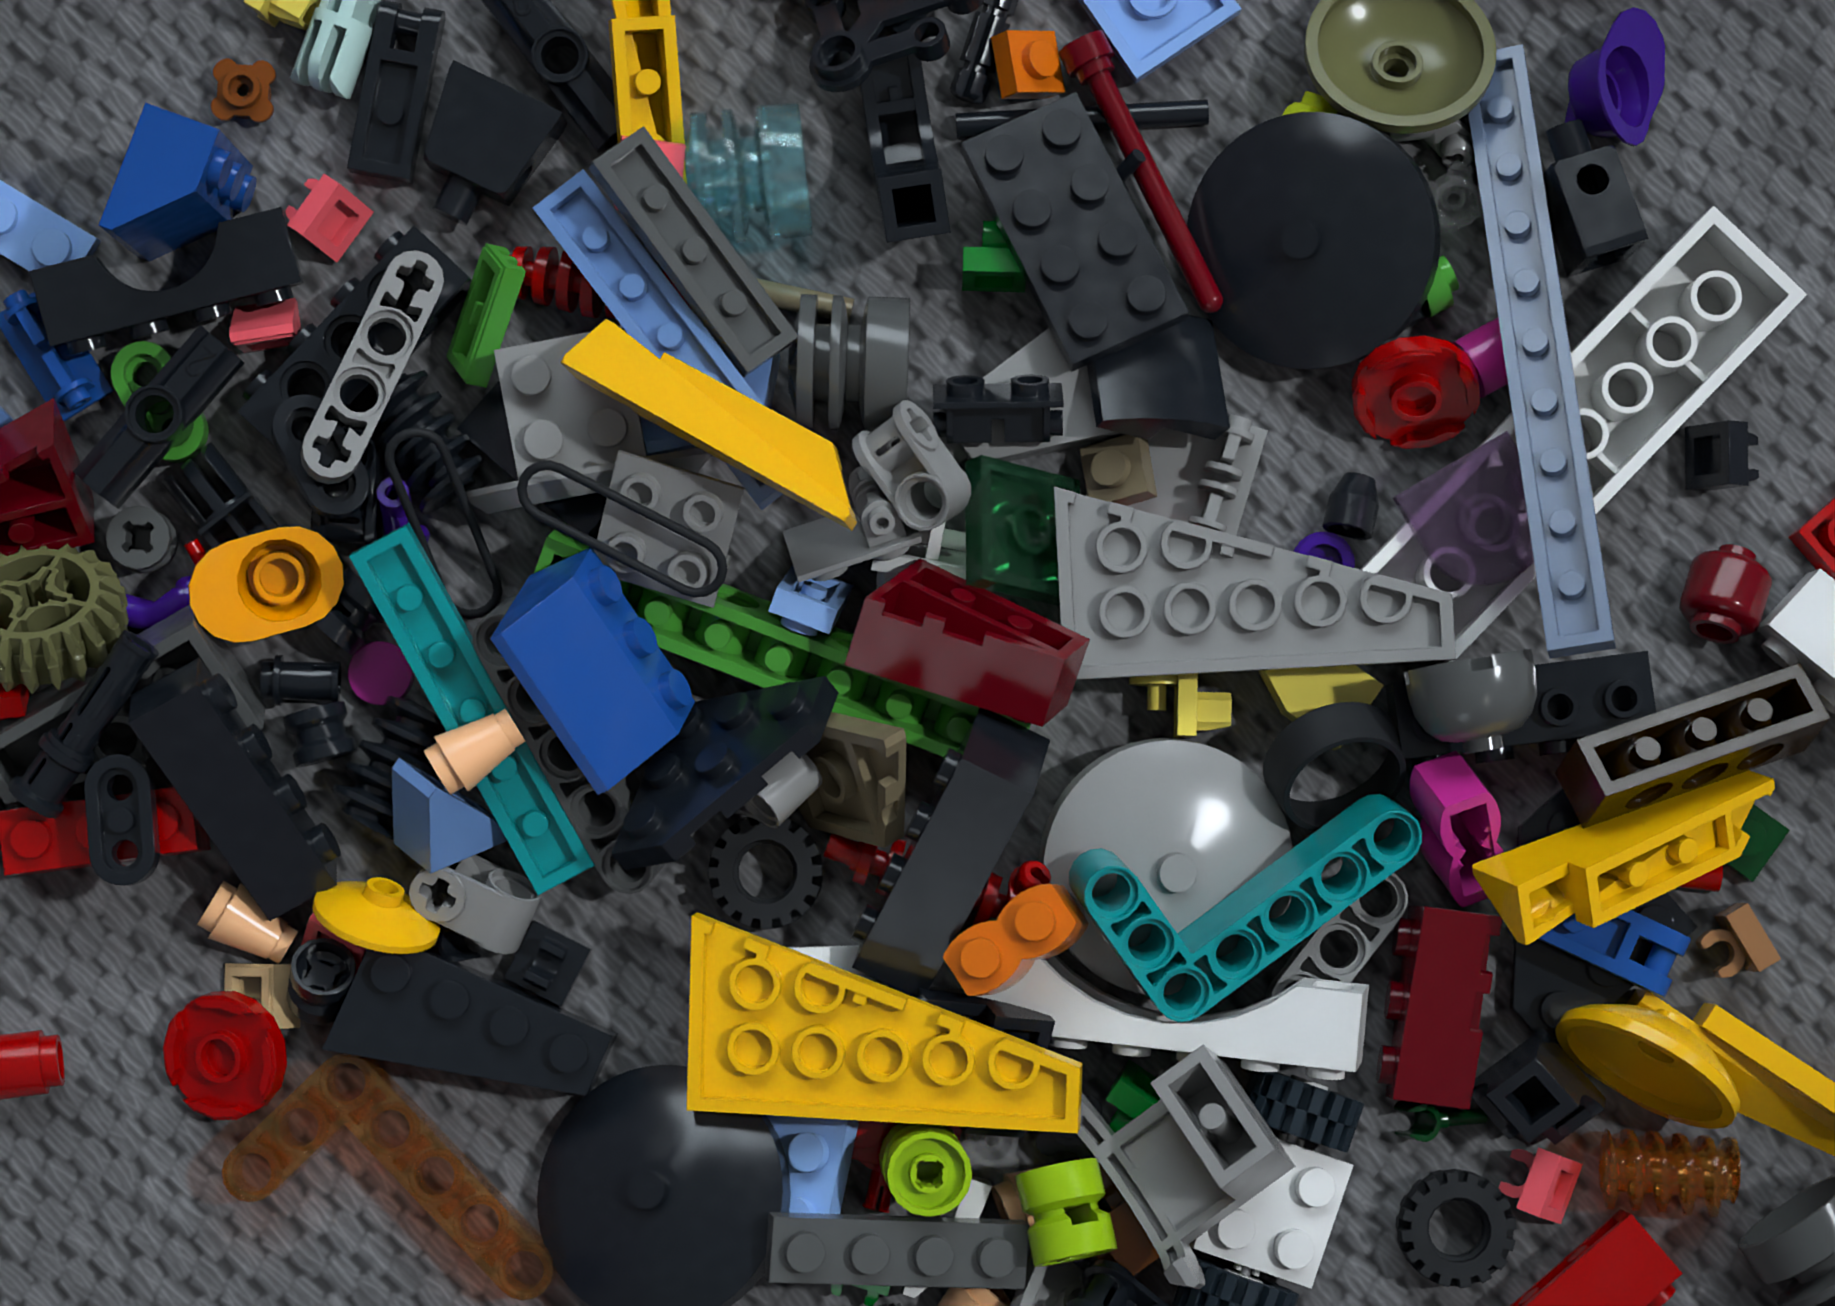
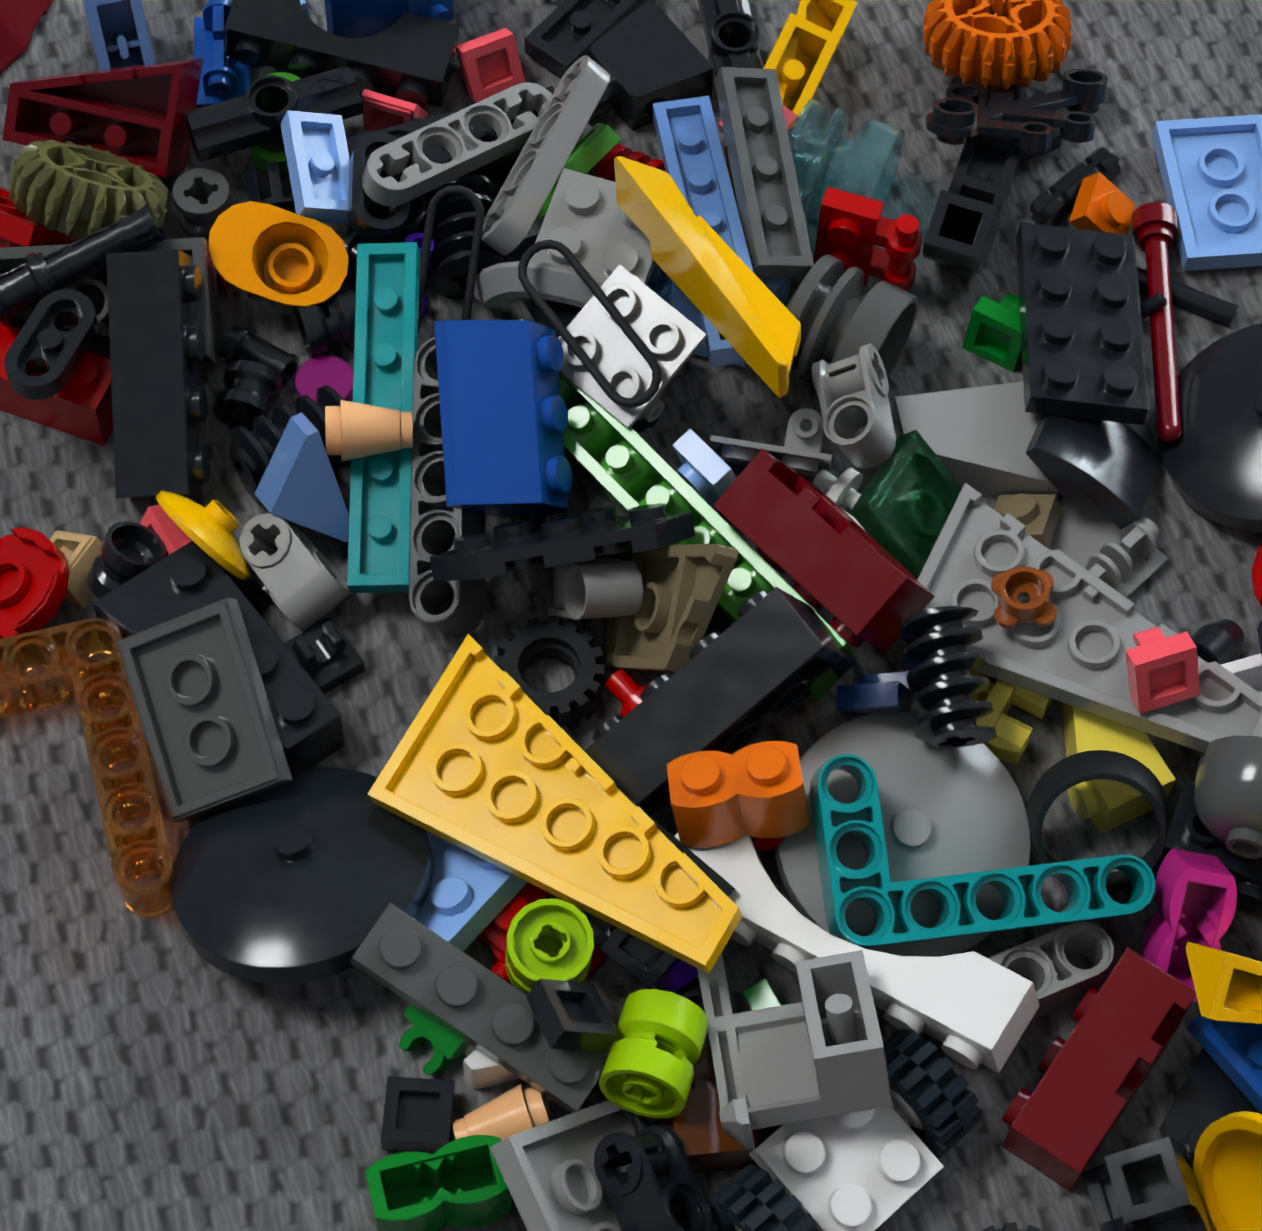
camera: 25 degrees right, 25 degrees down
(240, 923) = (90, 495): light nougat cone -> none
(243, 461) = (317, 165): none -> light blue plate
(464, 337) = (544, 155): none -> light grey beam
(489, 1099) = (204, 710): none -> dark grey tile
(810, 249) = (854, 227): none -> red plate
(983, 1229) = (571, 1016): none -> black plate
(1021, 404) = (970, 414): black hinge -> none
(1090, 743) = (875, 695): none -> dark blue slope
(1147, 724) = (943, 677): none -> black piece
(1175, 579) = (1023, 582): none -> dark orange plate
(1334, 621) = (1162, 669): none -> coral tile
(1431, 1120) = (1036, 1181): dark green hand -> none

